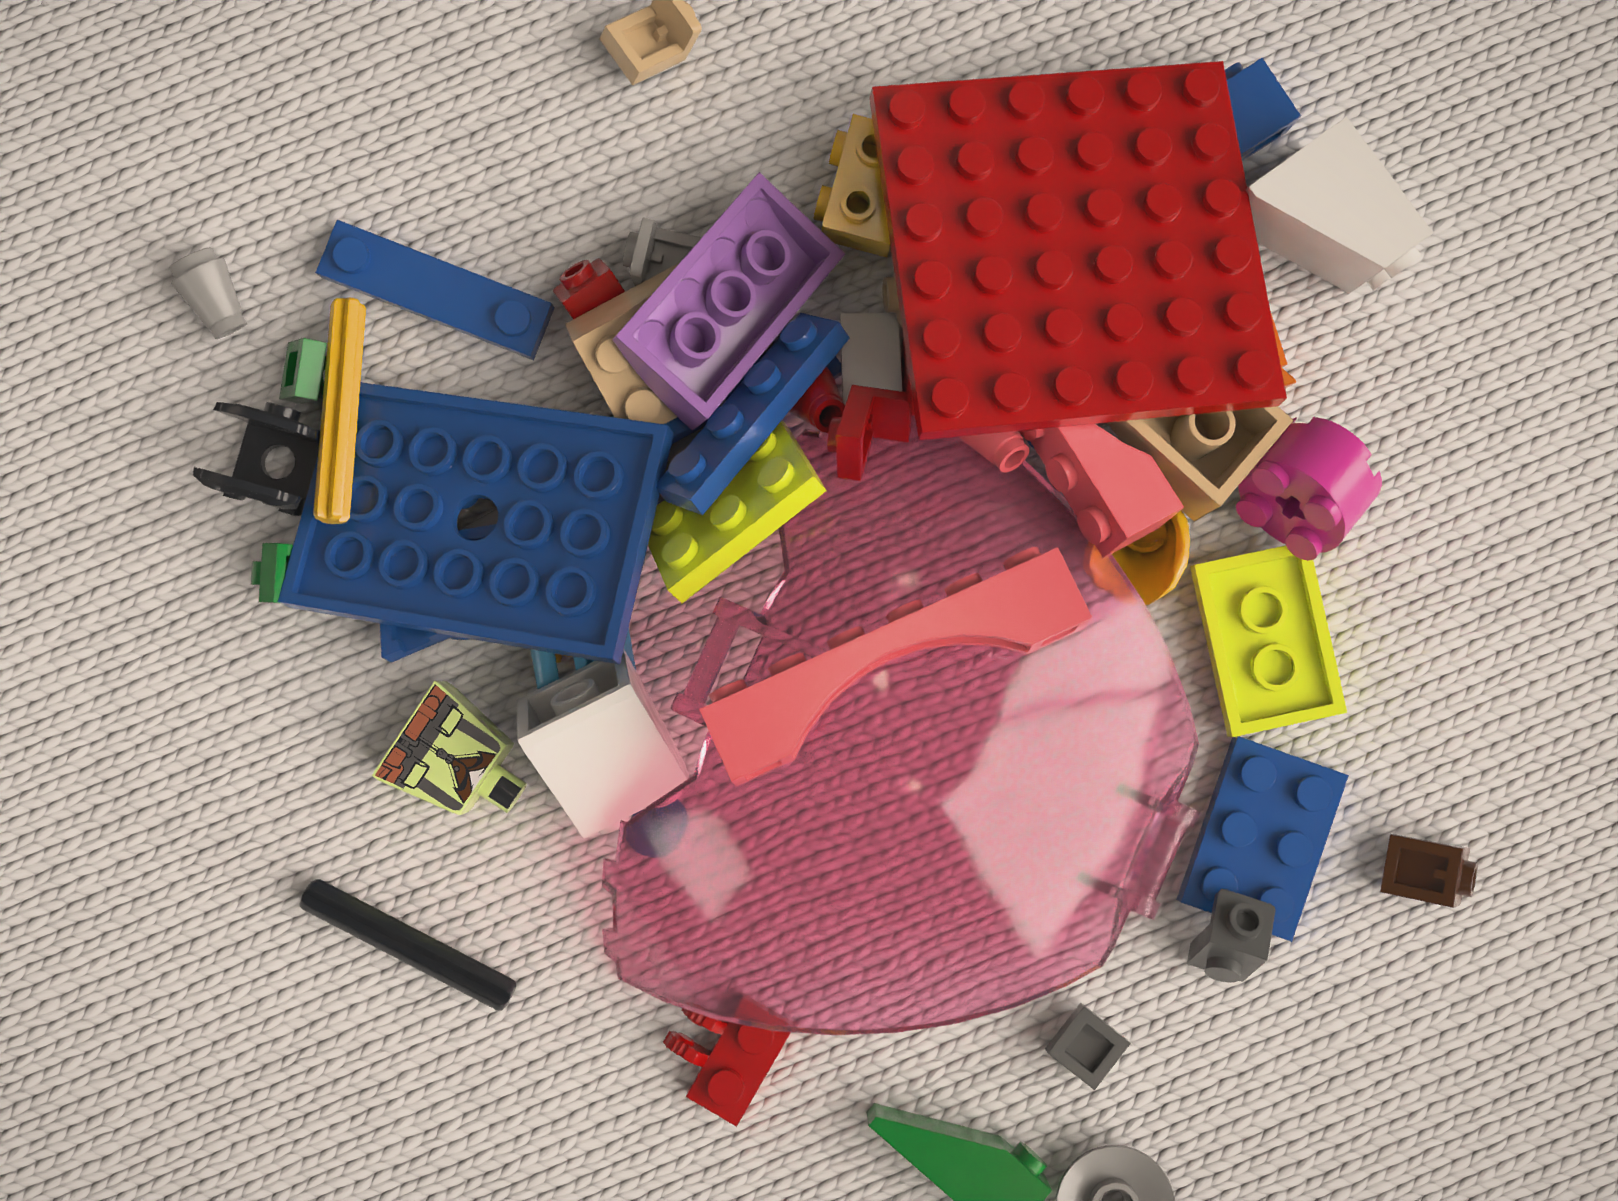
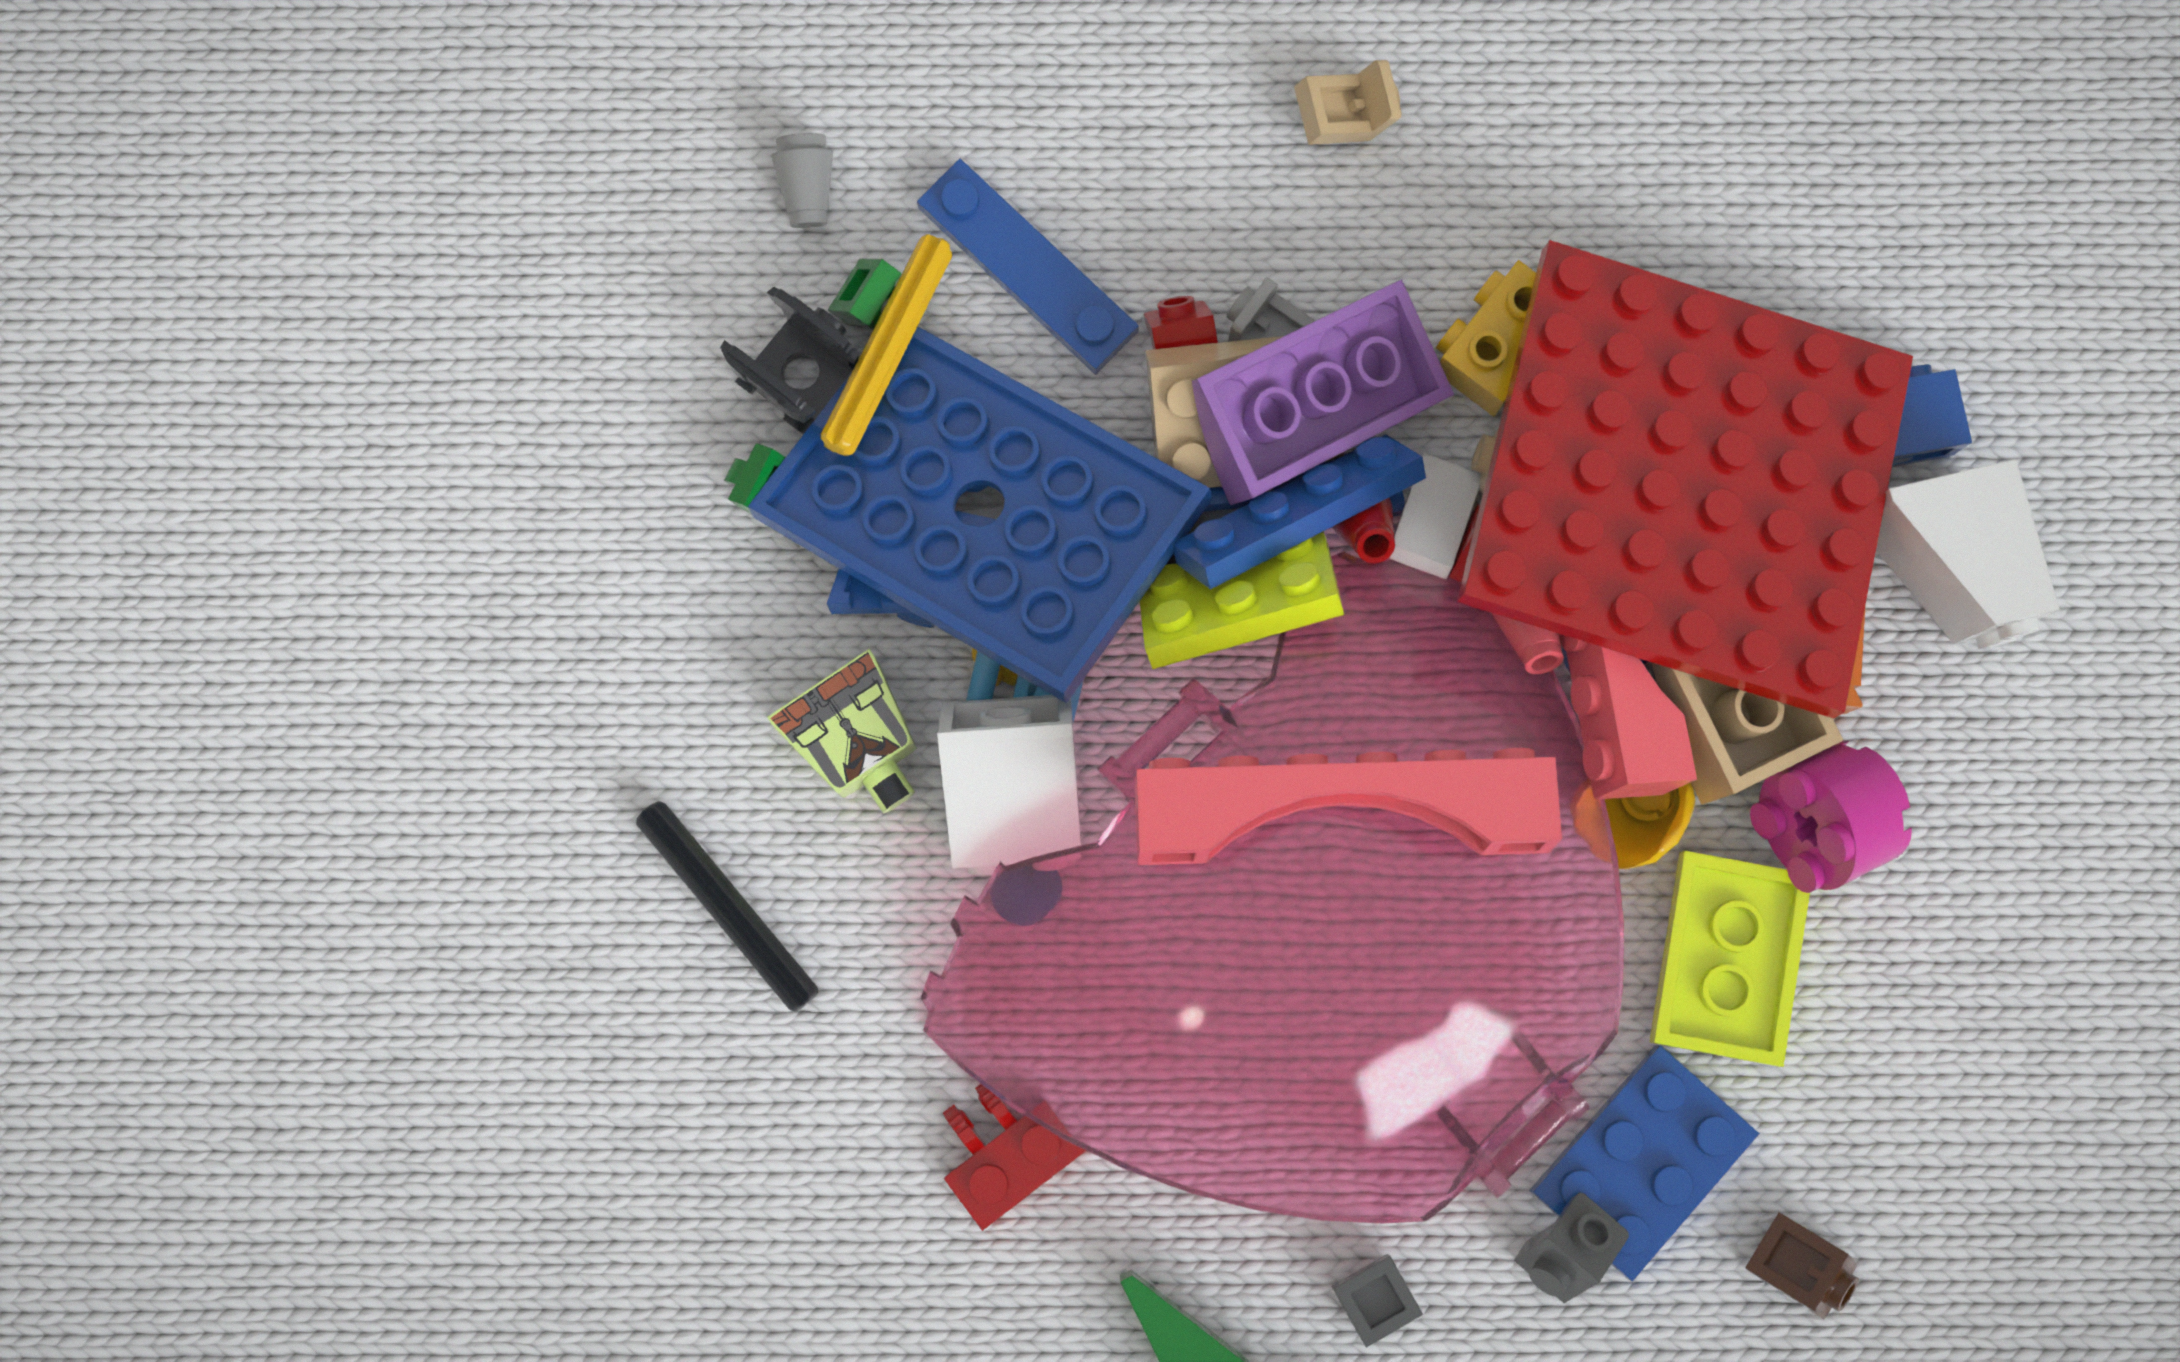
camera: 25 degrees right, 5 degrees down
(865, 415) = (1411, 560): red bracket -> none

